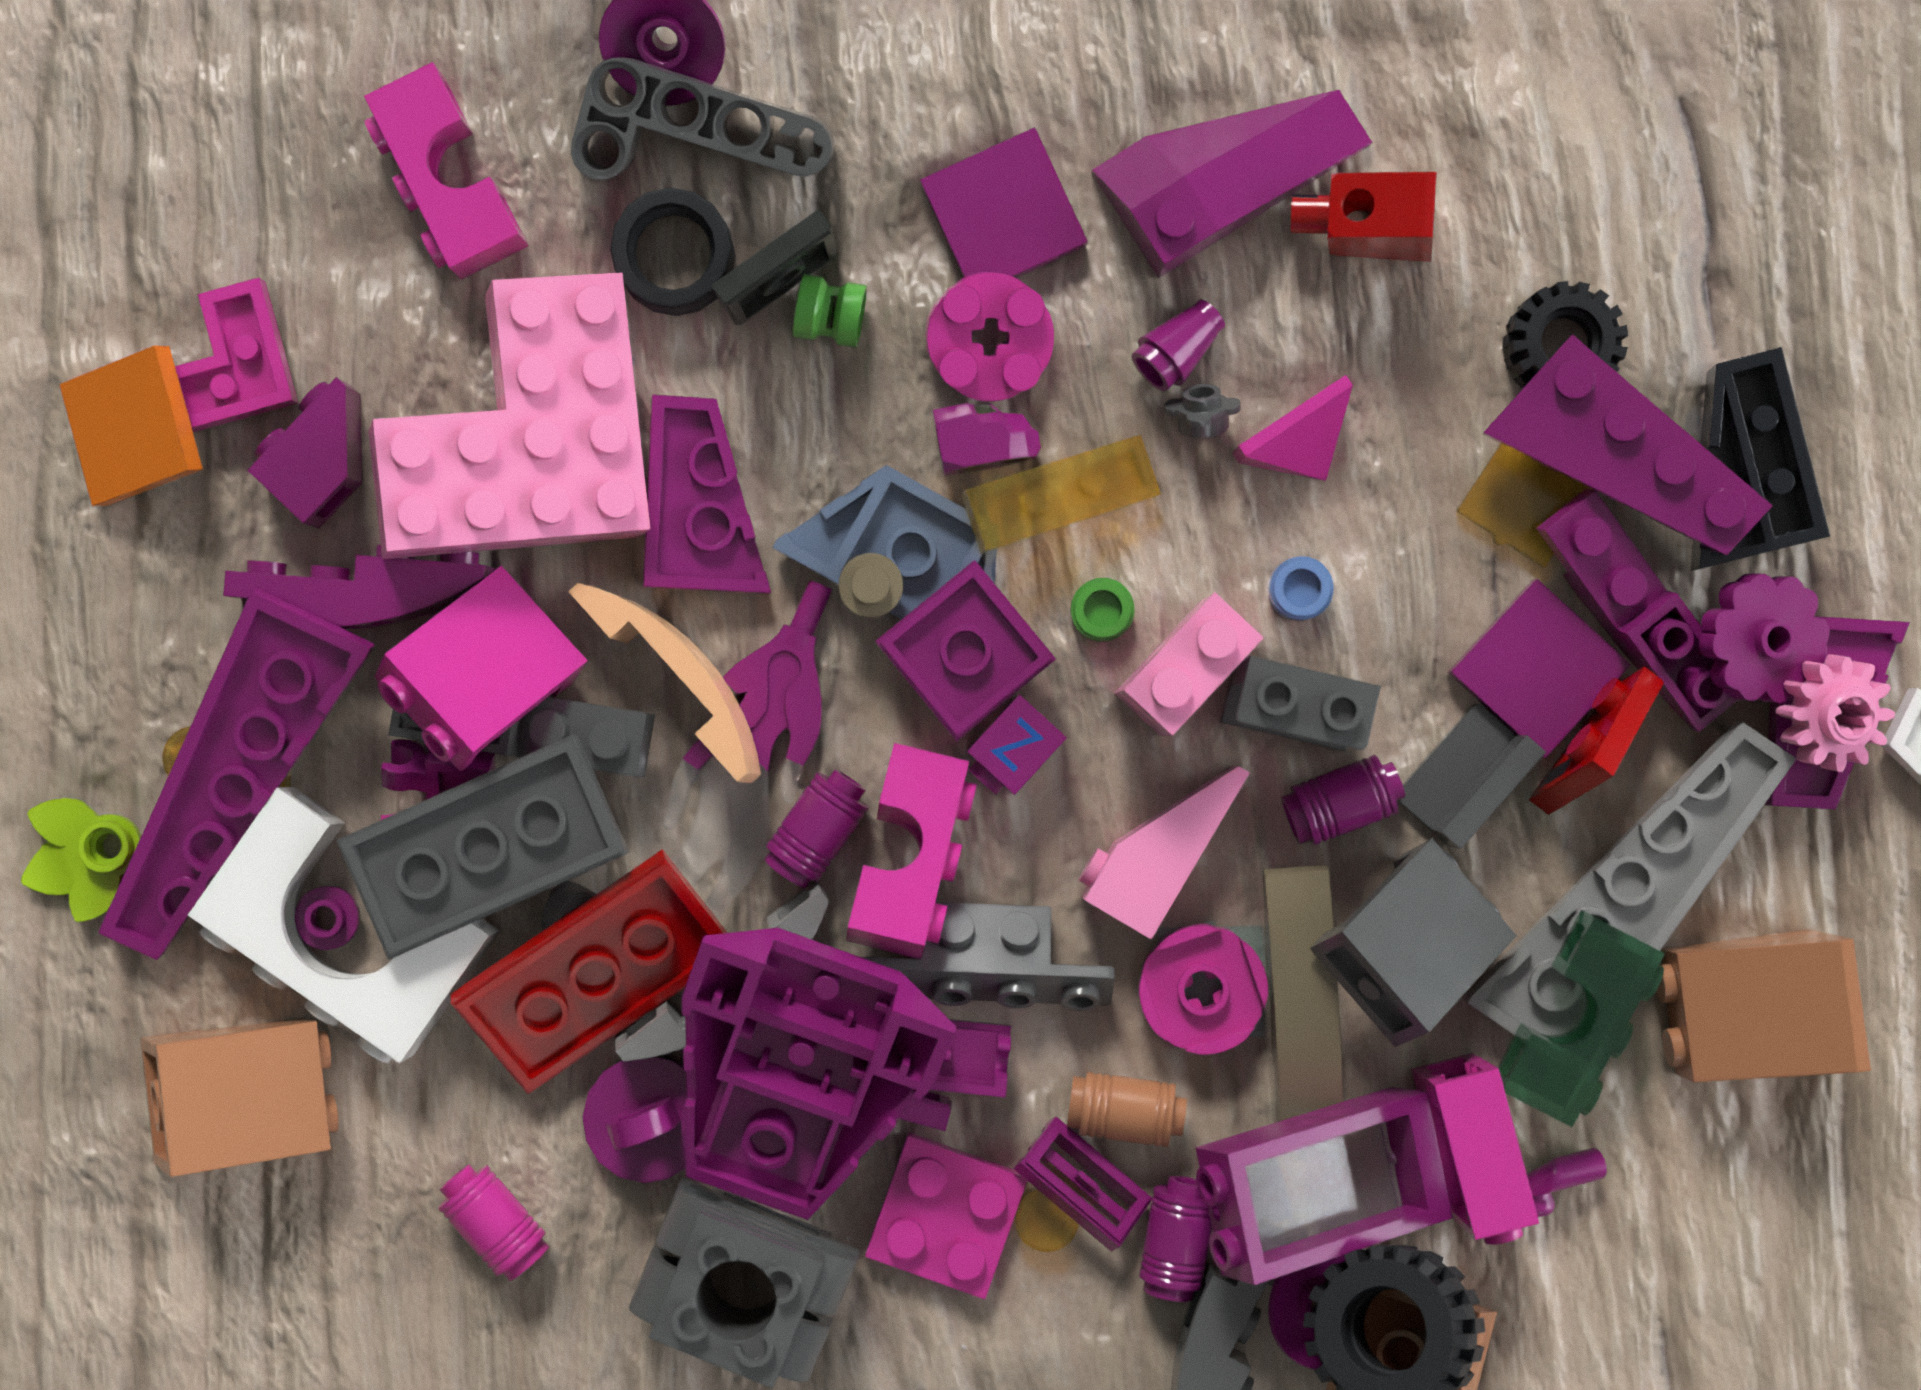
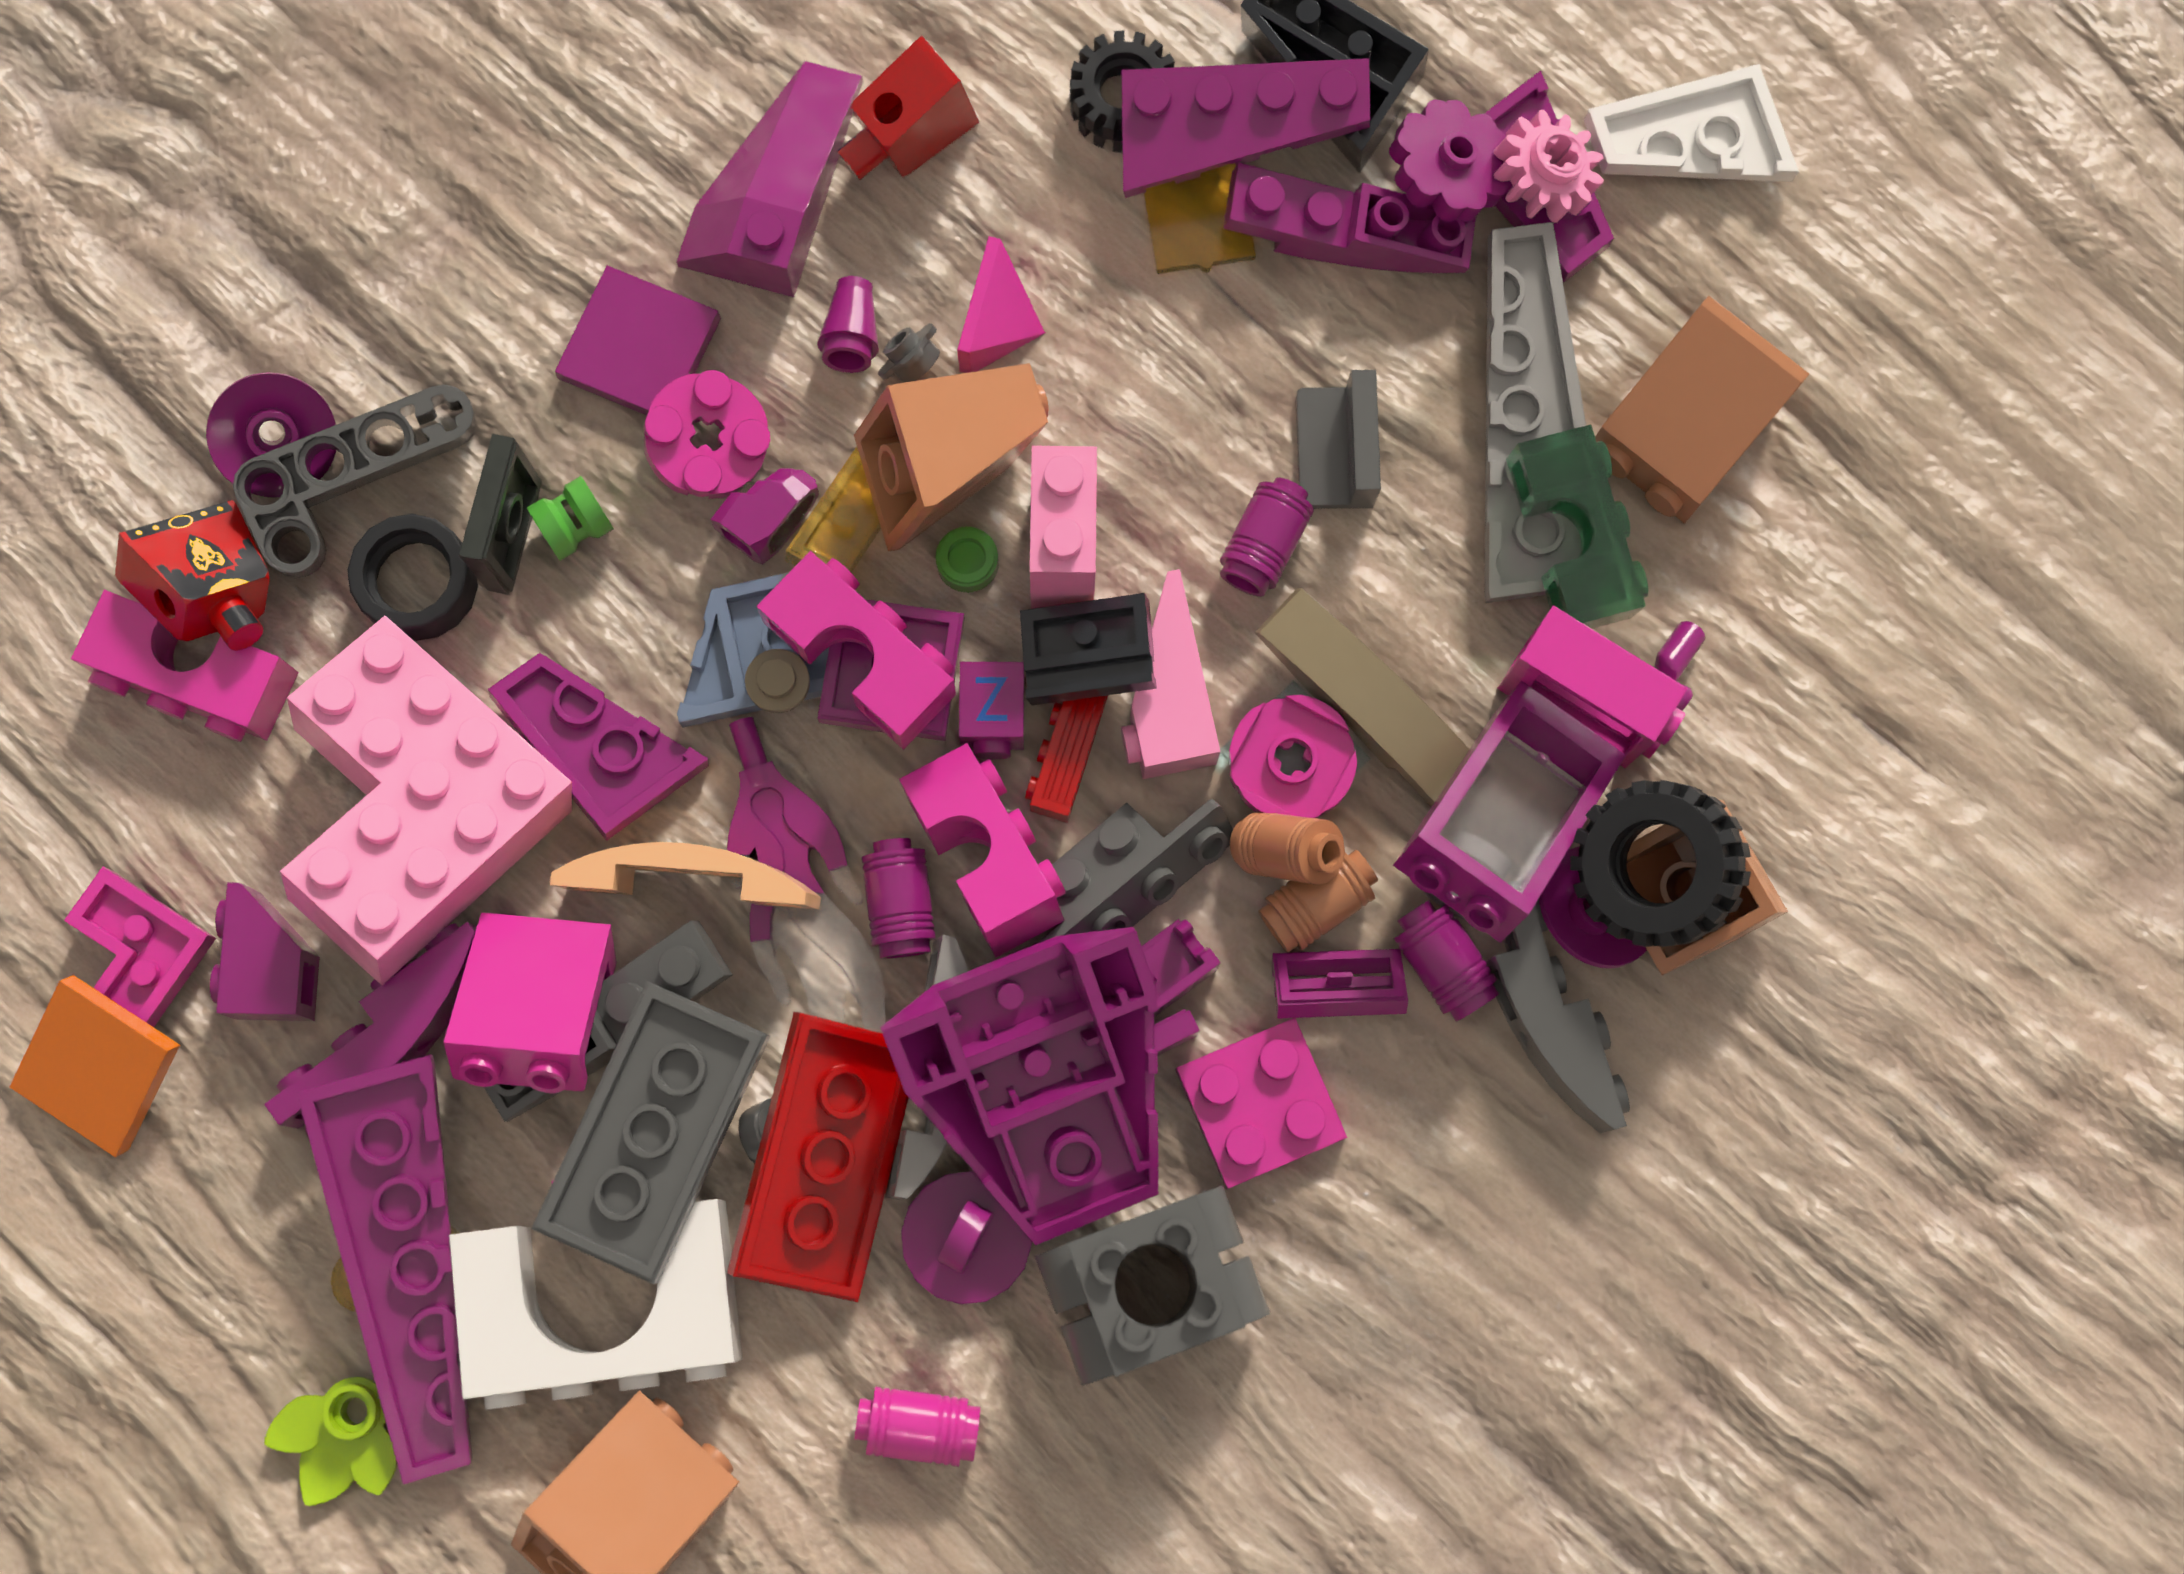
camera: 45 degrees left, 10 degrees down
(346, 913) = (599, 1314): magenta plate -> none
(426, 772) = (550, 1130): magenta plate -> none
(512, 115) = (198, 574): none -> red torso
(950, 563) = (821, 608): none -> dark pink arch
(1043, 1223) = (1337, 1041): clear yellow tile -> none
(1070, 810) = (1065, 757): none -> red piece
(1123, 772) = (1088, 649): none -> black plate
(1135, 1055) = (1288, 847): none -> nougat head
(1157, 521) = (944, 441): none -> nougat slope
(1300, 588) = (1097, 419): medium blue tile -> none
(1300, 704) = (1167, 486): dark grey panel -> none
(1415, 944) = (1411, 585): dark grey panel -> none
(1538, 667) = (1316, 325): magenta tile -> none
(1600, 742) = (1408, 335): red wing -> none

